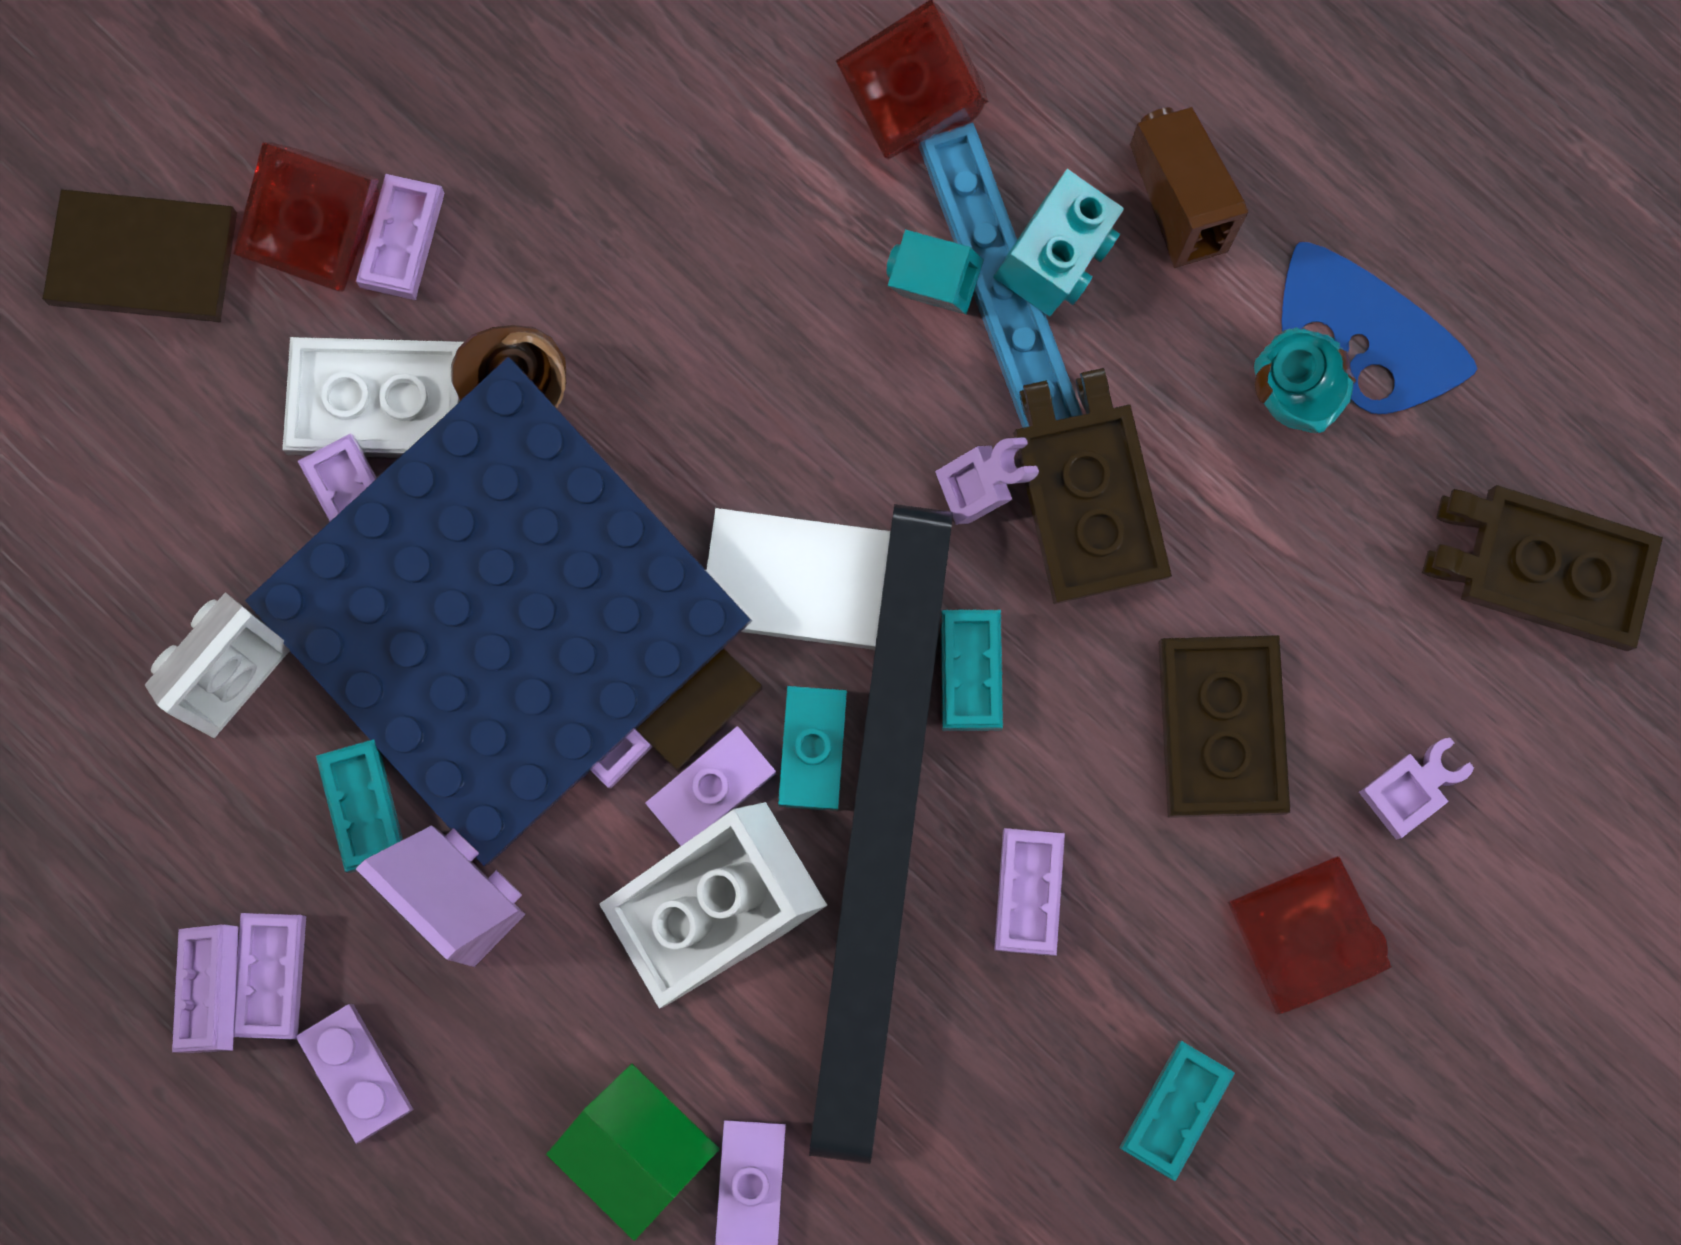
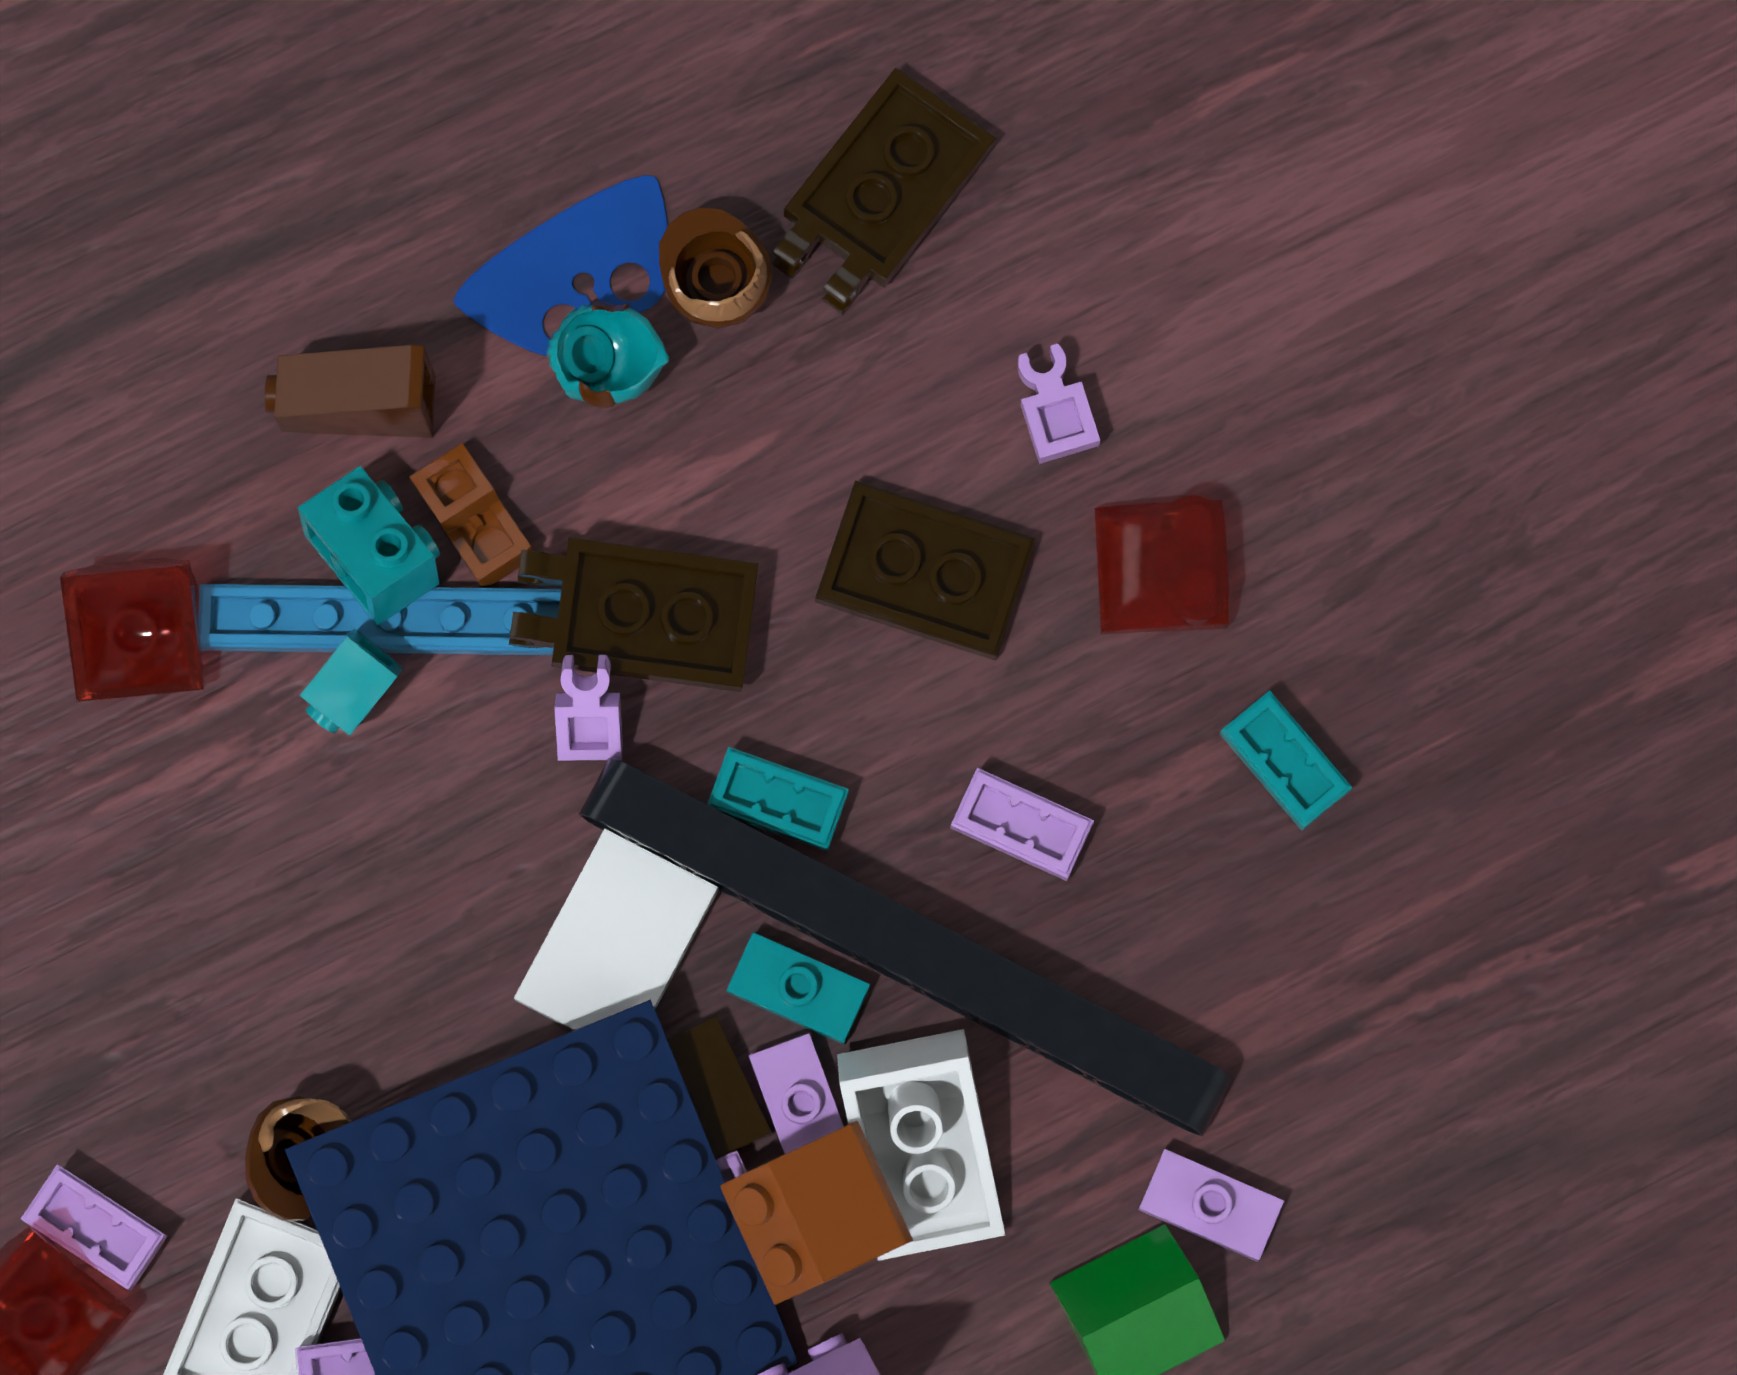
camera: 65 degrees left, 0 degrees up
(613, 832) = (816, 1213): none -> dark orange slope
(1119, 321) = (471, 515): none -> dark orange slope
(1418, 442) = (713, 268): none -> reddish brown piece

